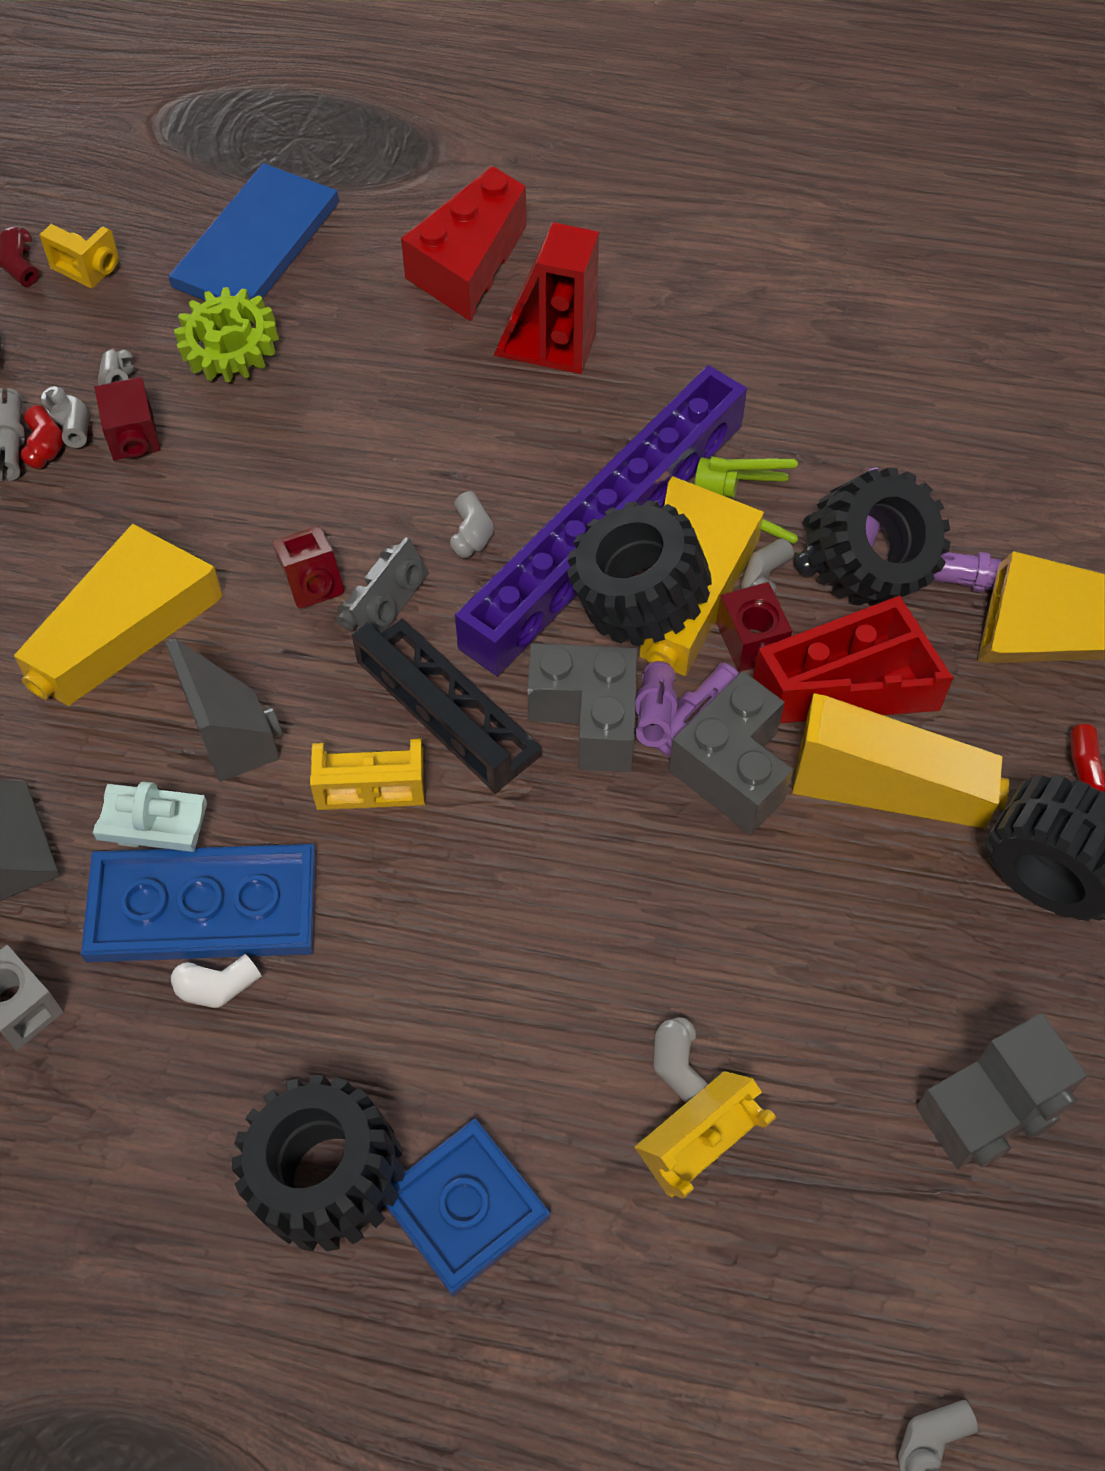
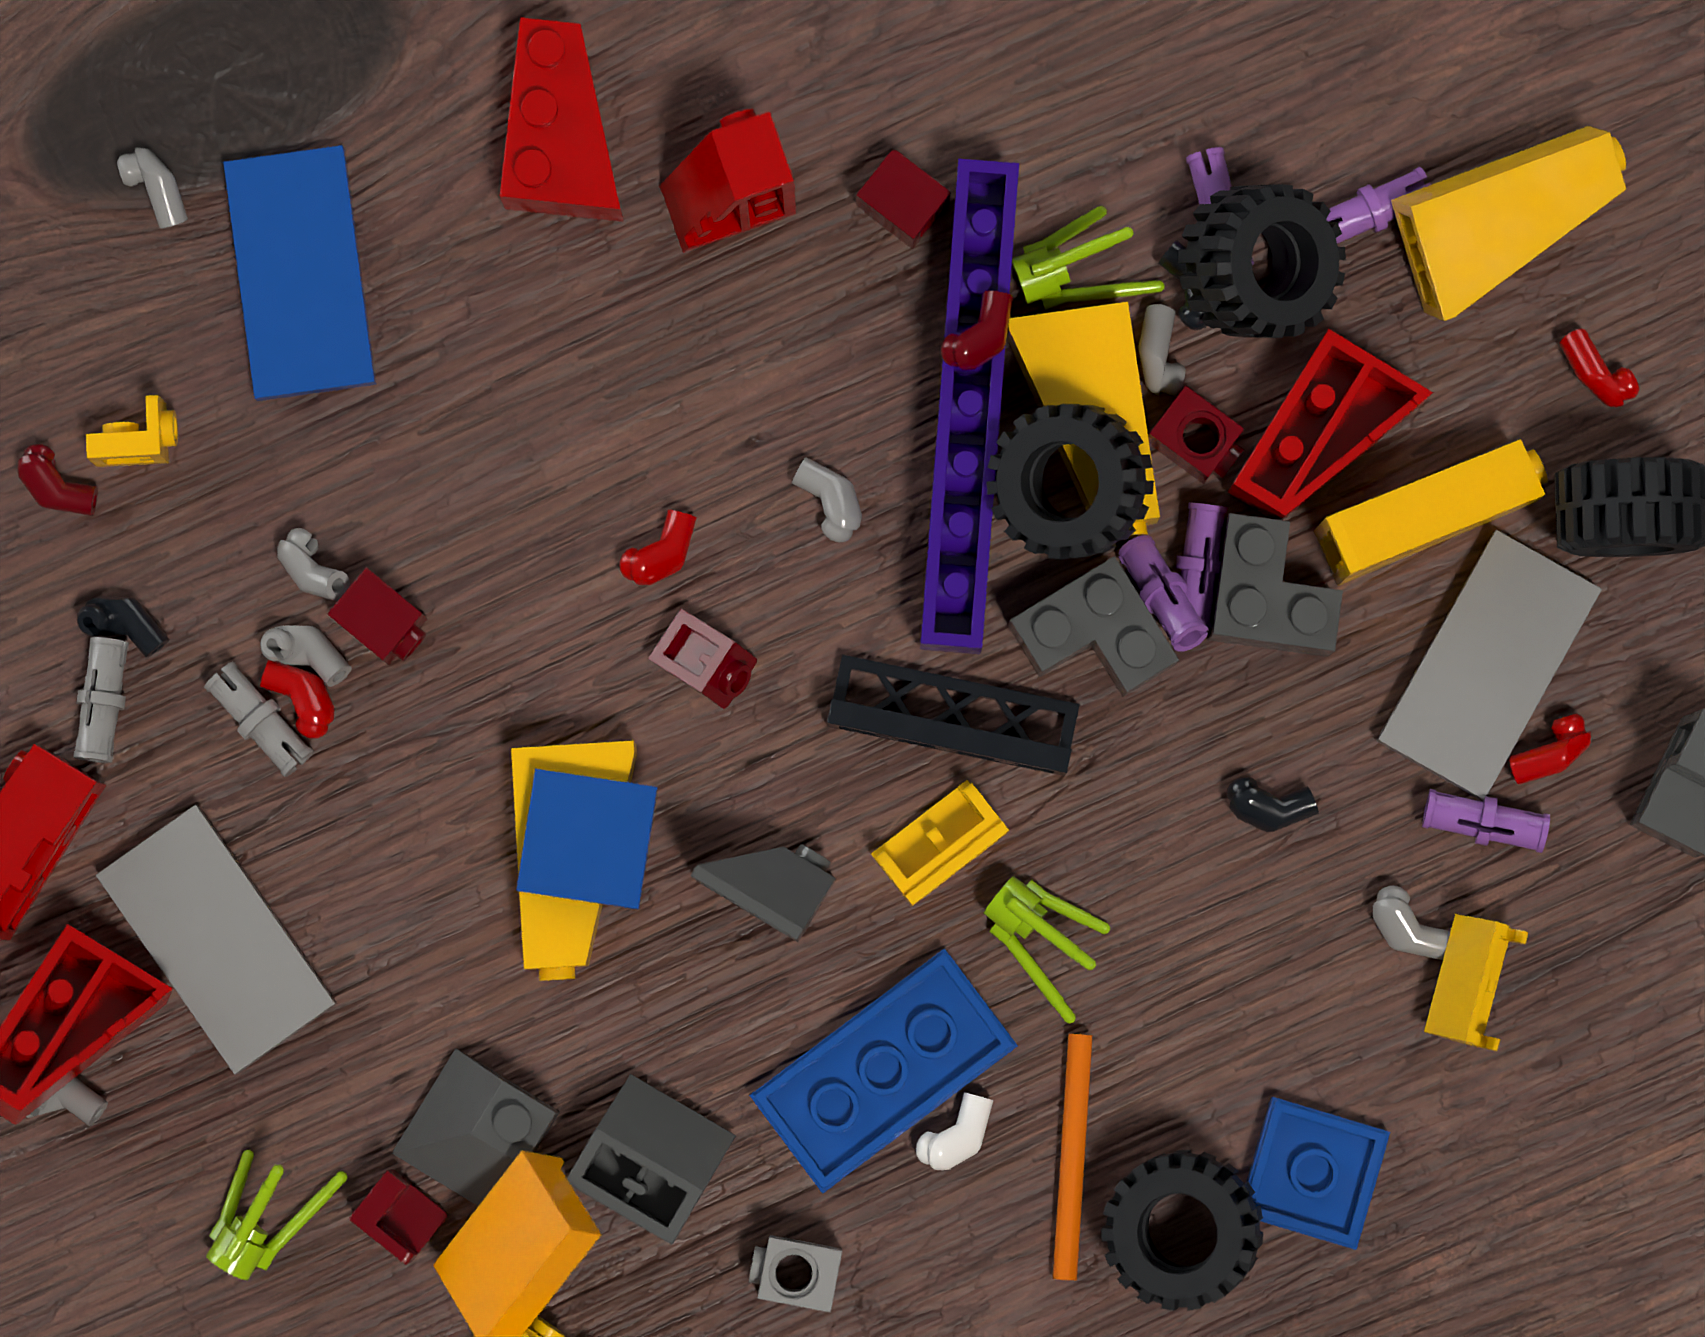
camera: 35 degrees left, 25 degrees up
(126, 599) = (587, 839): none -> blue tile
(150, 817) = (784, 1032): light aqua hips -> none
(216, 151) = (159, 182): none -> light grey arm
(226, 334) = (385, 411): lime gear -> none
(283, 1061) = (1072, 1157): none -> orange bar
(335, 494) = (663, 556): none -> red arm
(388, 590) = (805, 665): dark grey hinge -> none
(388, 855) = (1019, 911): none -> lime plant
(627, 904) = (1266, 810): none -> black arm
(645, 458) = (983, 339): none -> dark red arm
(651, 384) = (903, 198): none -> dark red panel
(826, 1047) = (1486, 821): none -> medium lavender pin
(873, 913) = (1489, 665): none -> light grey tile
(879, 1006) = (1553, 757): none -> red arm

